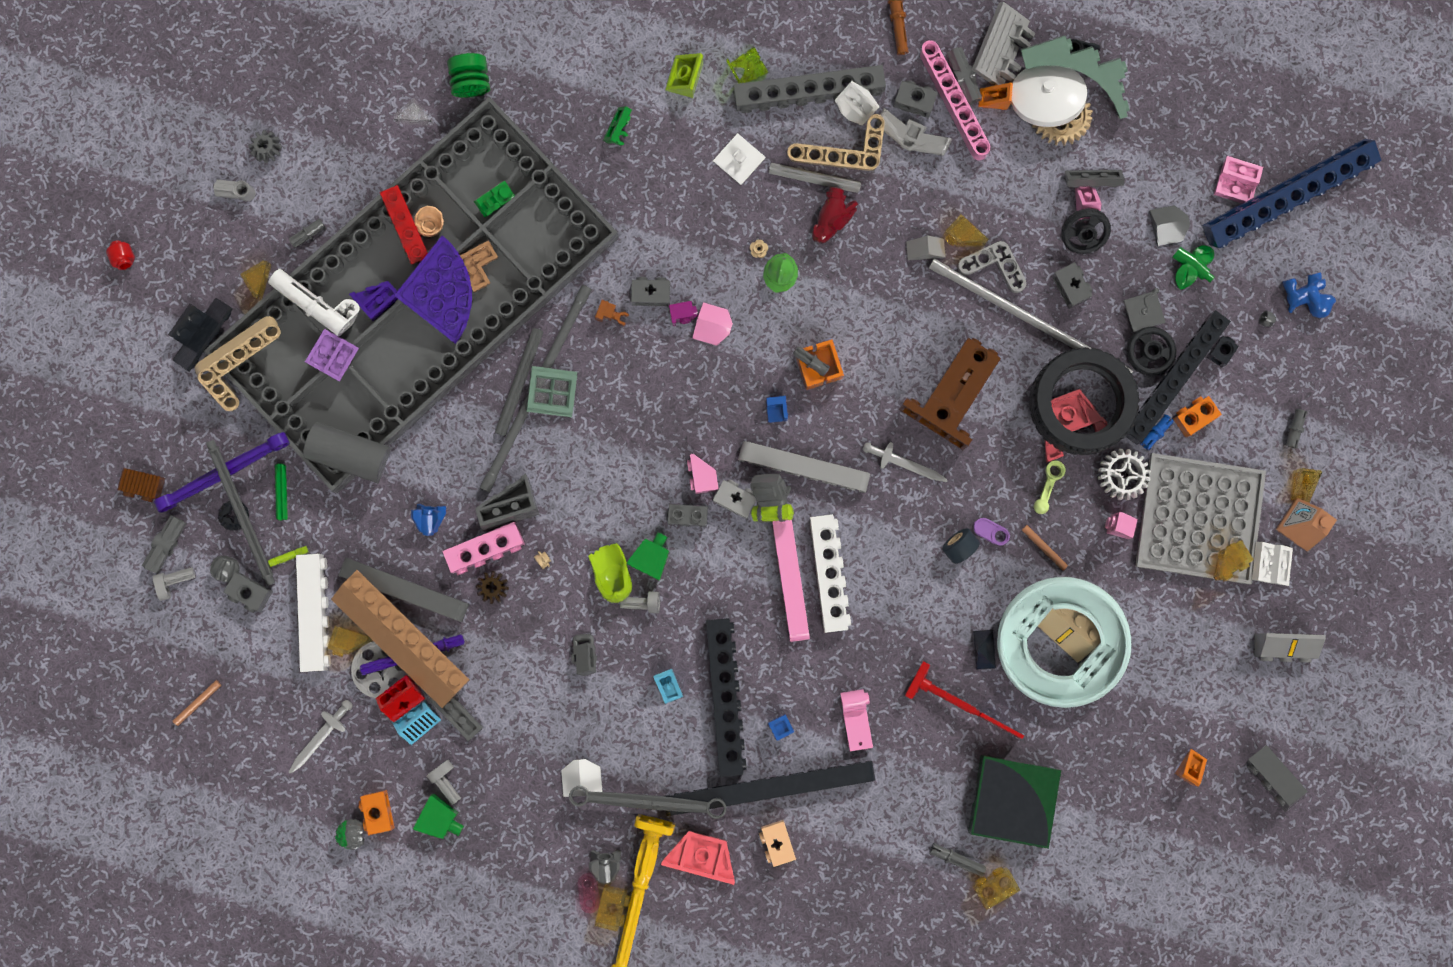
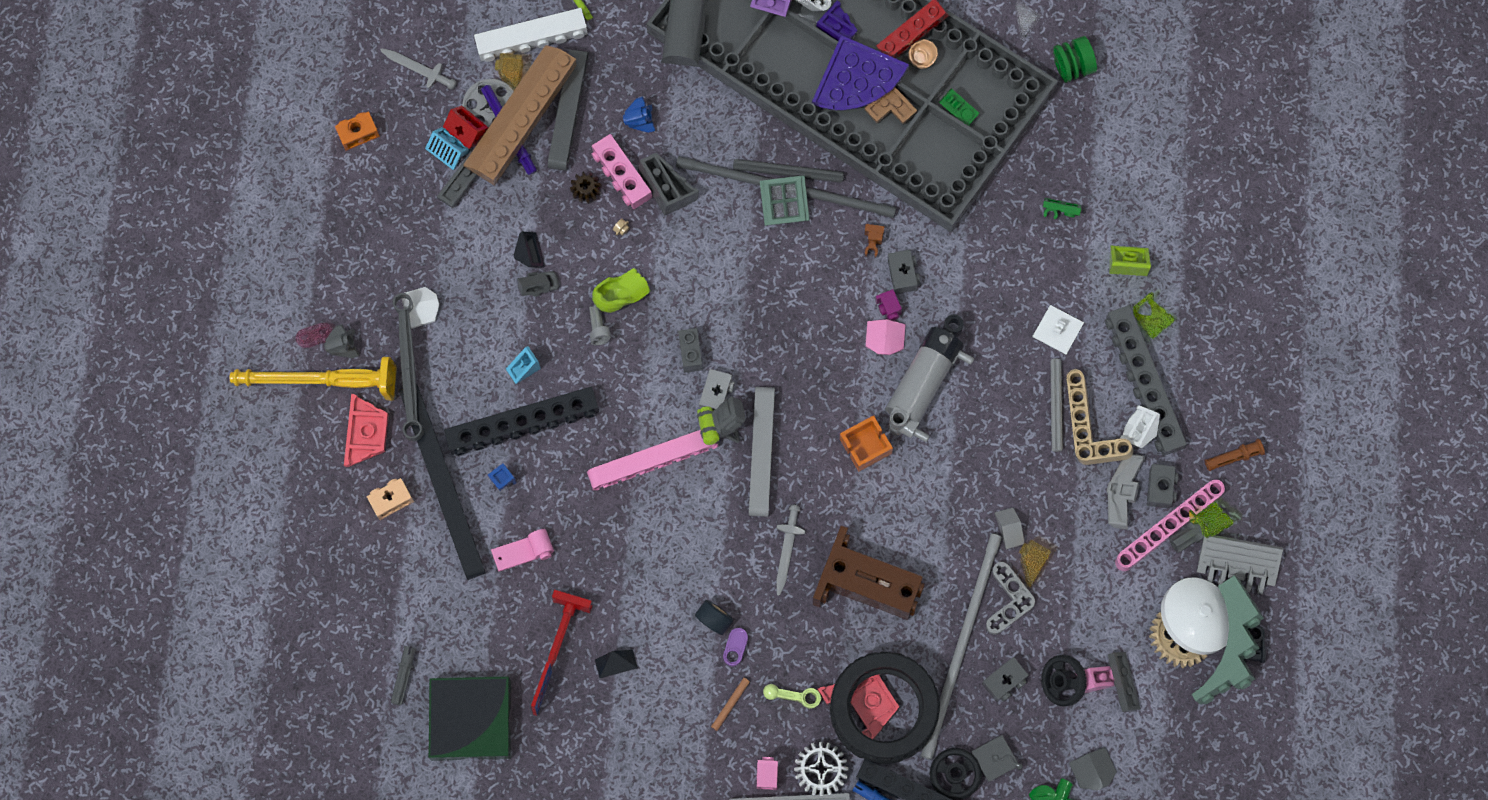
camera: 85 degrees right, 10 degrees down
(350, 834) = (332, 110): dark grey piece -> none
(438, 819) = (360, 185): green torso -> none
(441, 781) = (400, 176): light grey piece -> none
(546, 658) = (528, 250): none -> black slope
(610, 896) = (295, 352): clear yellow brick -> none
(650, 557) = (643, 325): green torso -> none
(704, 476) = (732, 357): bright pink slope -> none
(758, 253) = (971, 370): tan plate -> none
(765, 294) = (924, 377): none -> light grey piece
(776, 409) = (814, 414): blue panel -> none
(780, 272) = (953, 392): bright green piece -> none
(811, 361) = (865, 430): dark grey axle -> none
(830, 623) = (668, 487): white brick -> none
(833, 215) = (1020, 427): dark red animal -> none
(958, 56) = (1214, 517): none -> clear neon green piece
(996, 96) = (1184, 565): orange slope -> none
(998, 893) = (378, 720): clear yellow brick -> none
(1071, 631) = (653, 743): tan slope -> none
(1102, 666) = (653, 689): light aqua piece -> none

